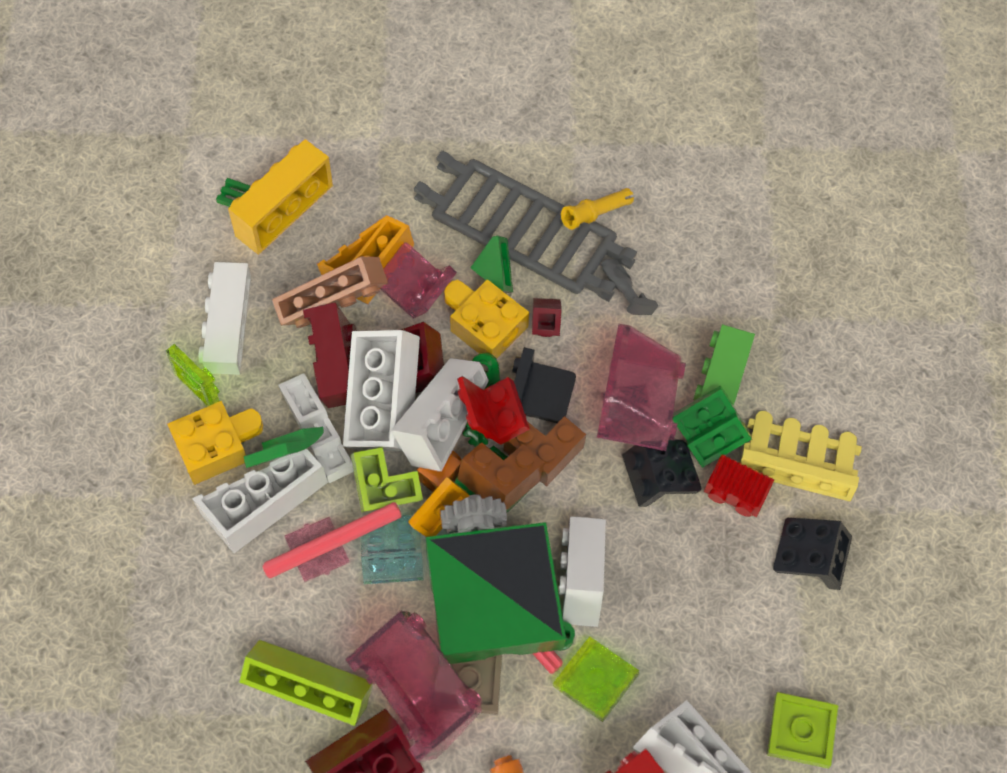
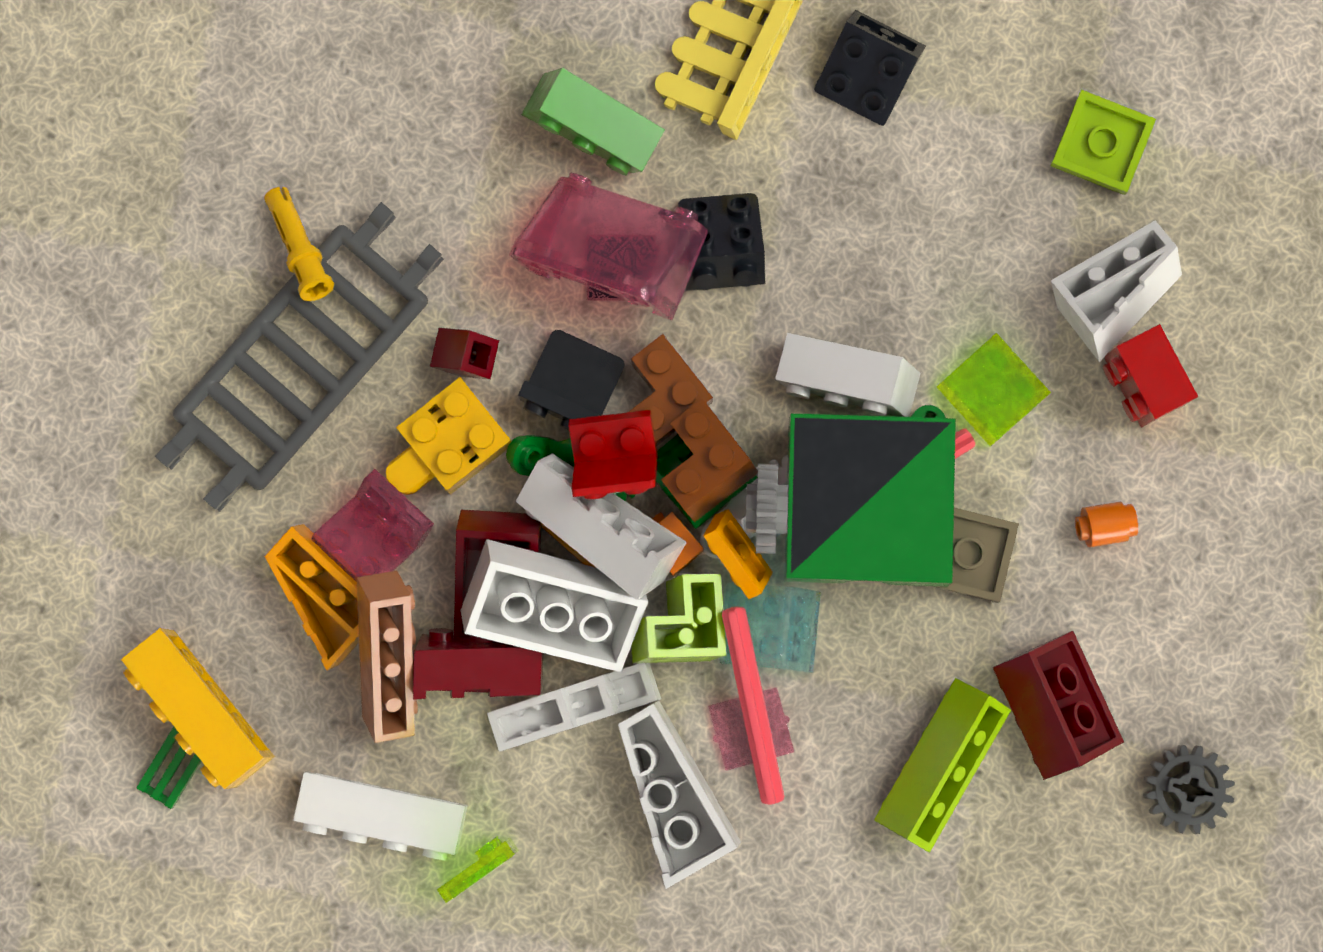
camera: 75 degrees left, 20 degrees up
(213, 440) = (573, 851): yellow brick -> none
(284, 446) = (612, 752): green slope -> none
(418, 684) = (984, 617): clear pink windscreen -> none
(495, 264) = (369, 412): green slope -> none
(617, 274) = (421, 232): dark grey piece -> none
(711, 426) = (675, 158): green slope -> none
(738, 486) = (764, 143): red brick -> none

